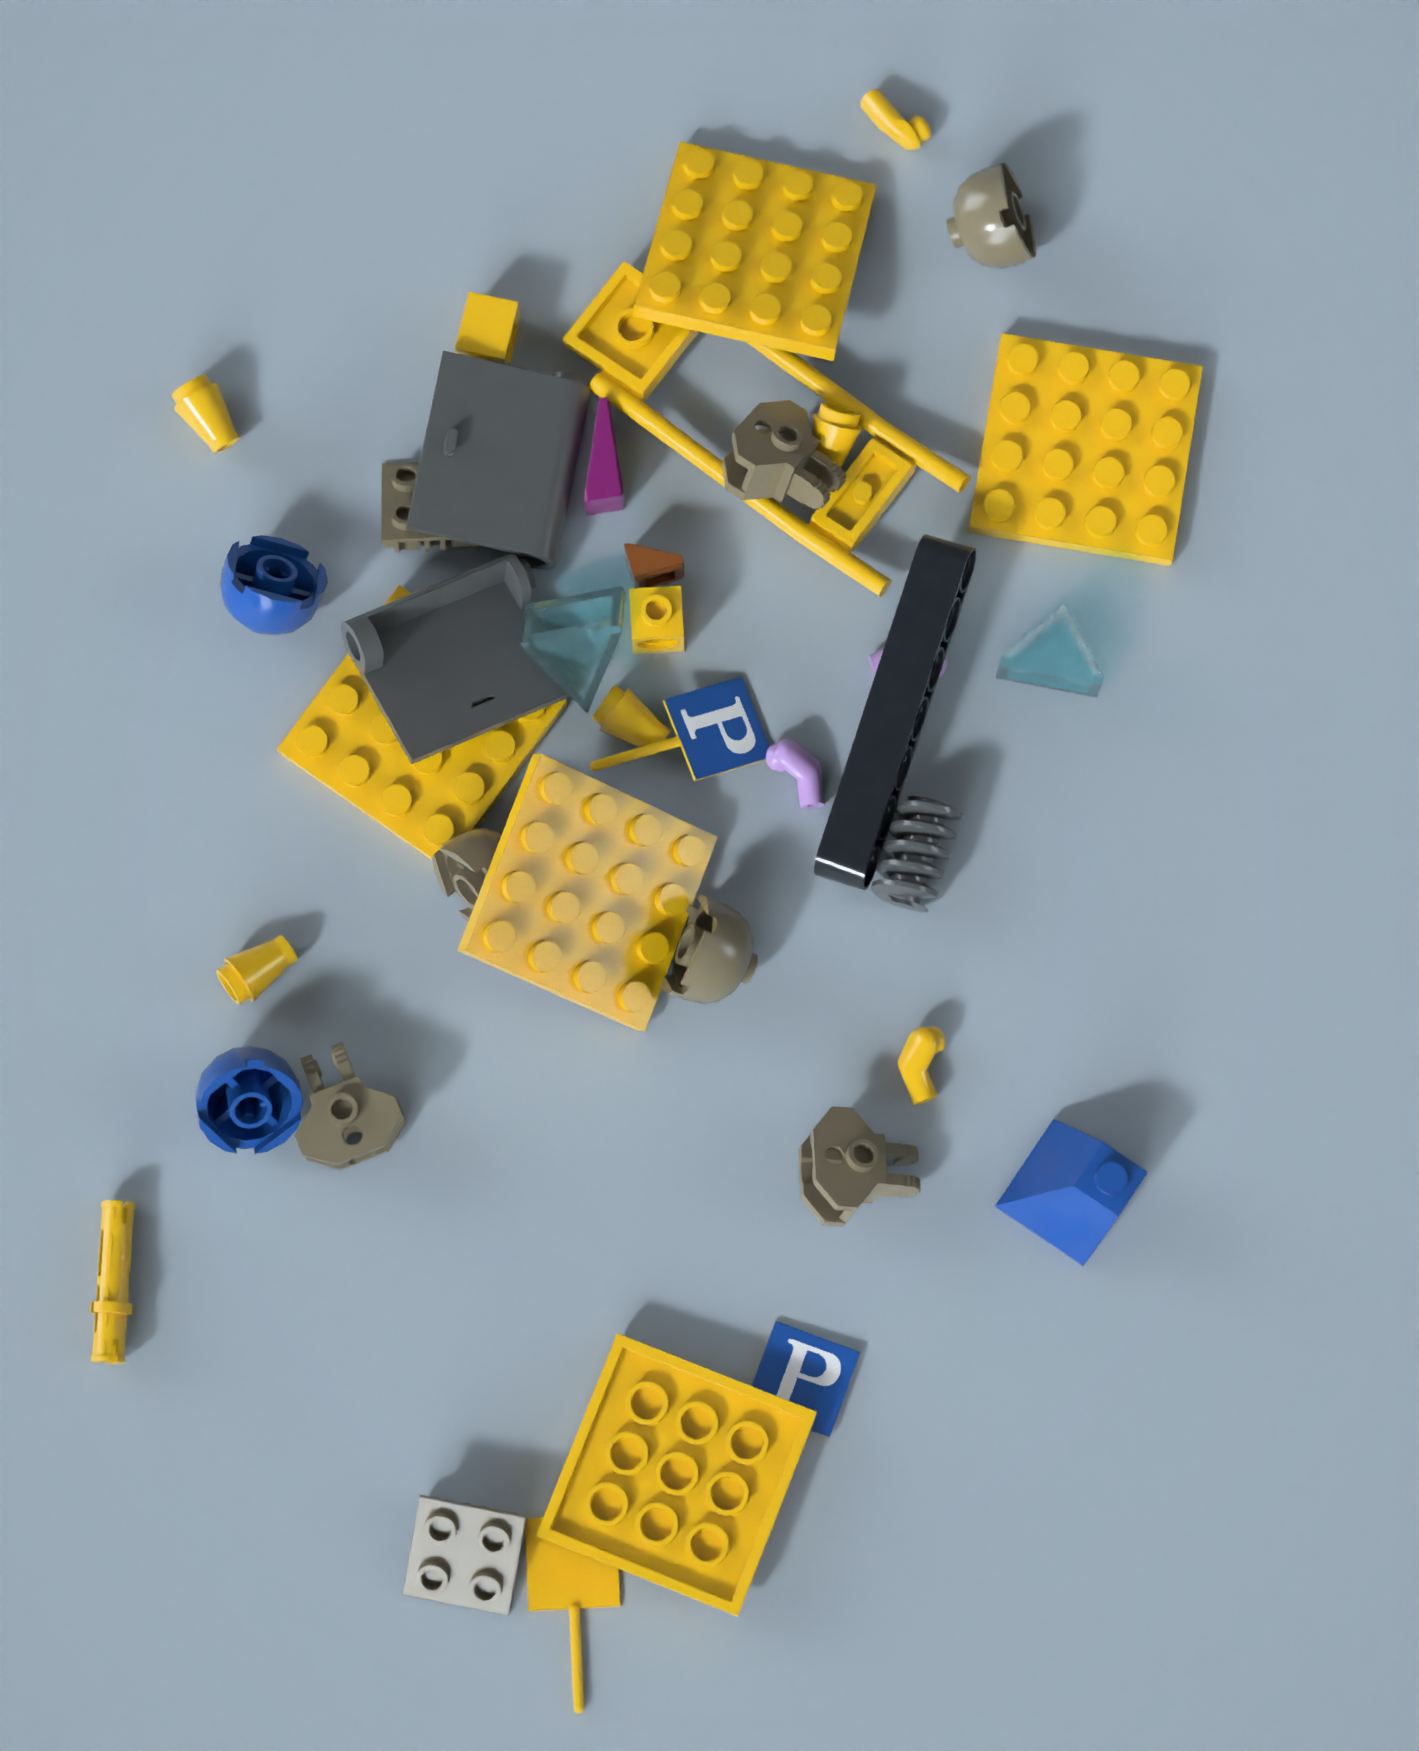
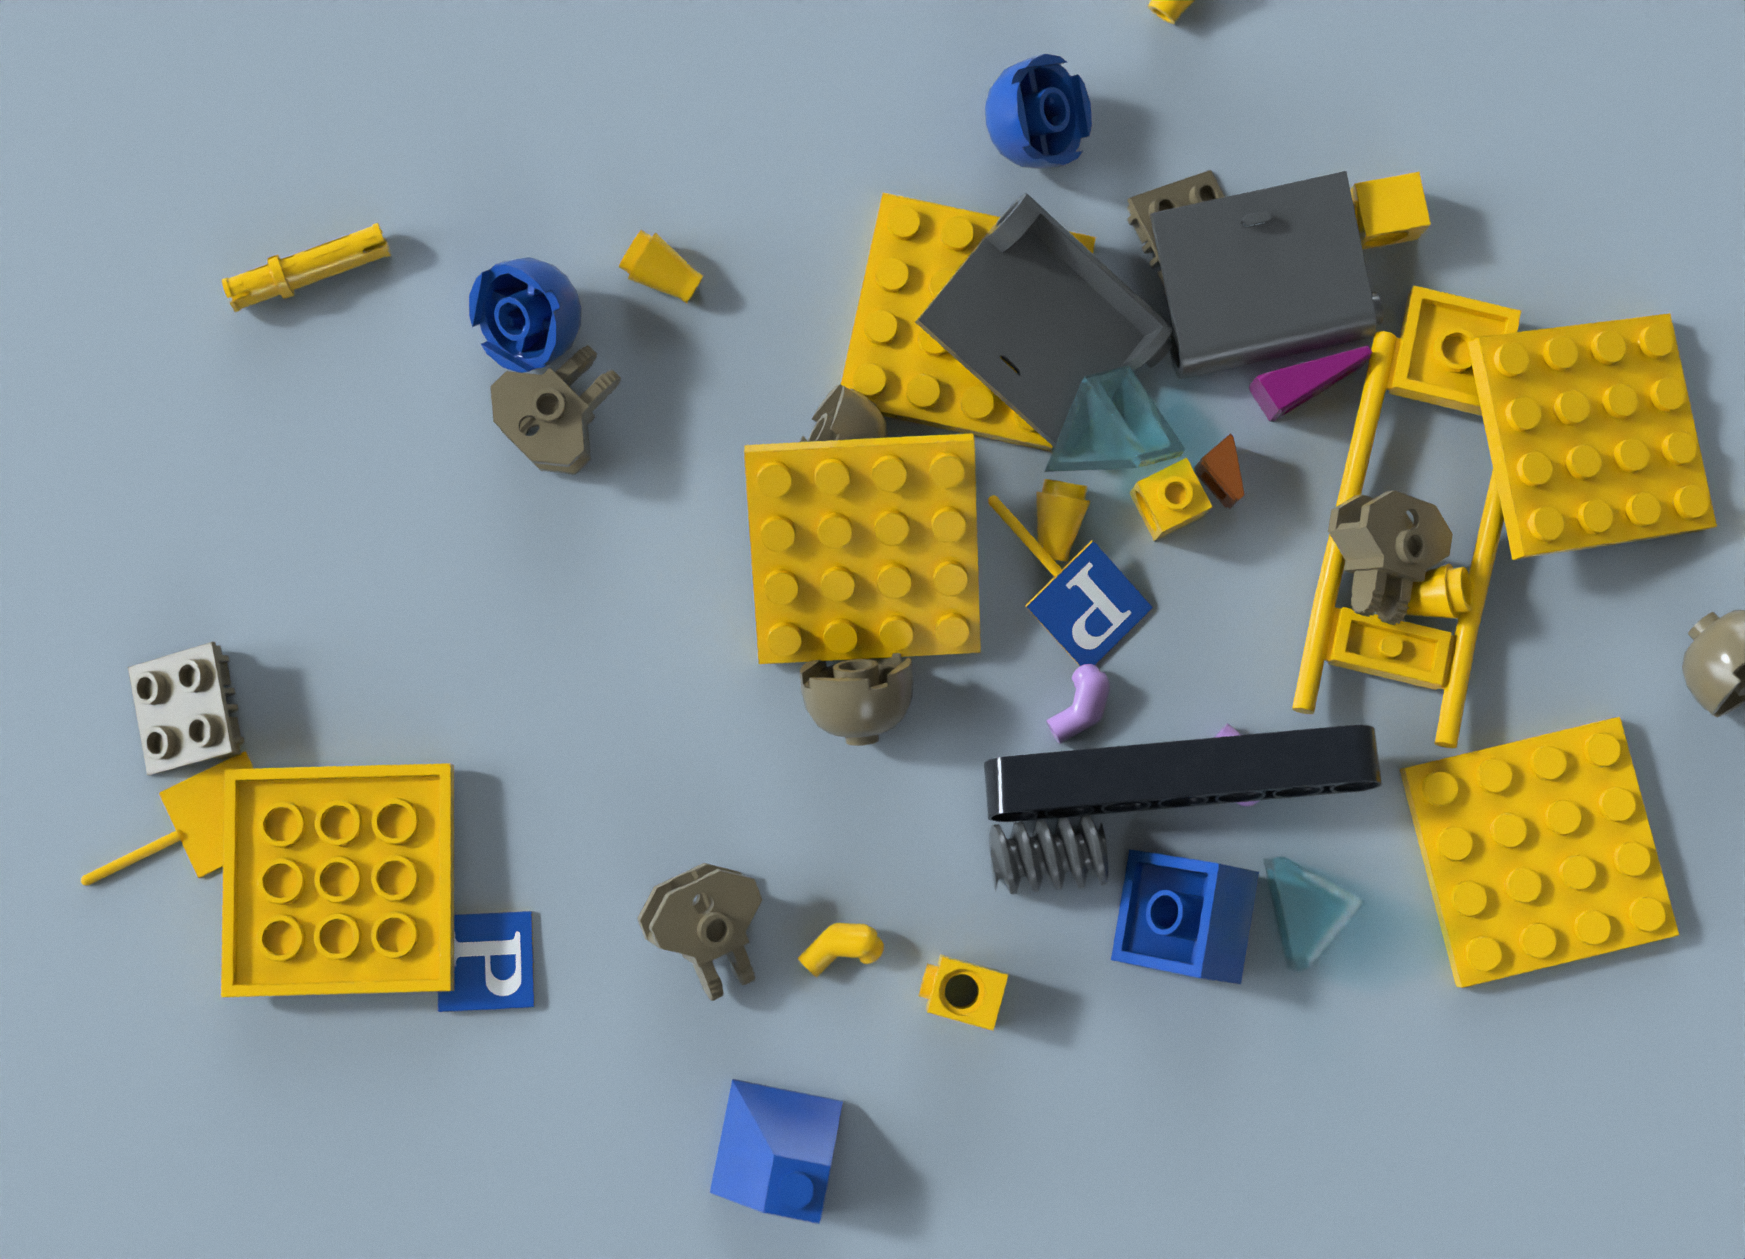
camera: 65 degrees right, 5 degrees up
(1015, 954) = (987, 1002): none -> yellow brick
(1016, 761) = (1185, 916): none -> blue slope

